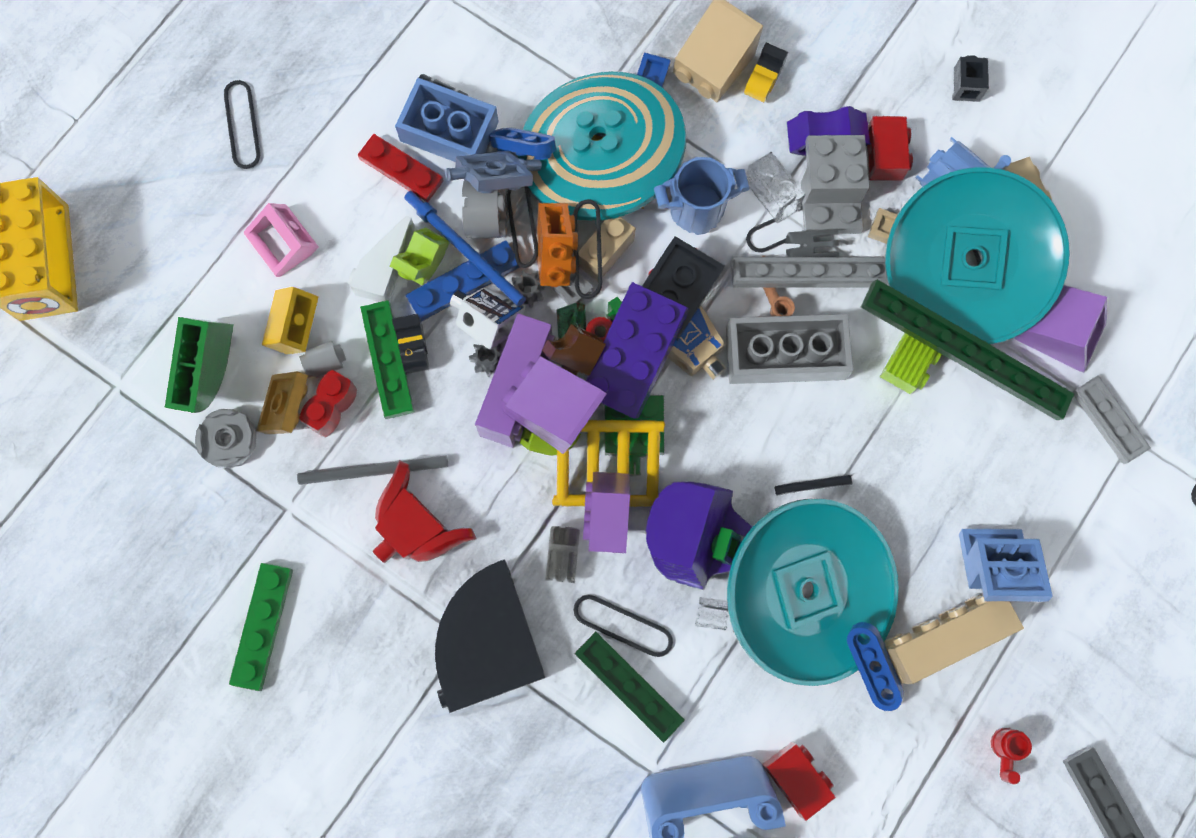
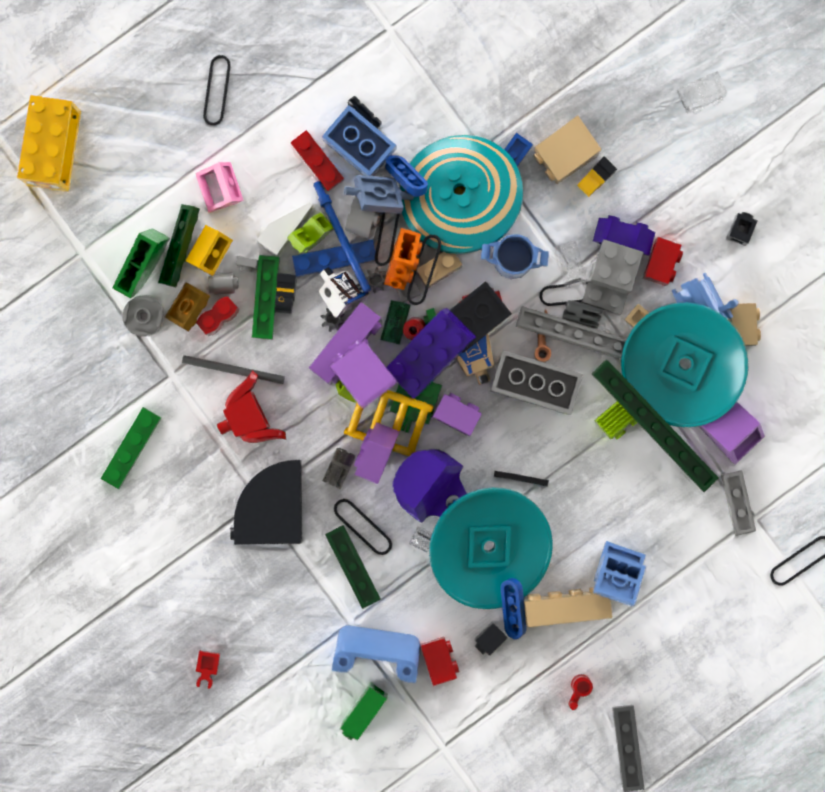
camera: 25 degrees right, 10 degrees up
(248, 330) = (179, 245): none -> dark green plate
(347, 323) = (246, 264): none -> light grey plate
(576, 350) = (390, 341): reddish brown brick -> none
(700, 424) = (457, 415): none -> medium lavender brick
(725, 545) = (443, 500): green plate -> none
(858, 722) = (490, 639): none -> black brick

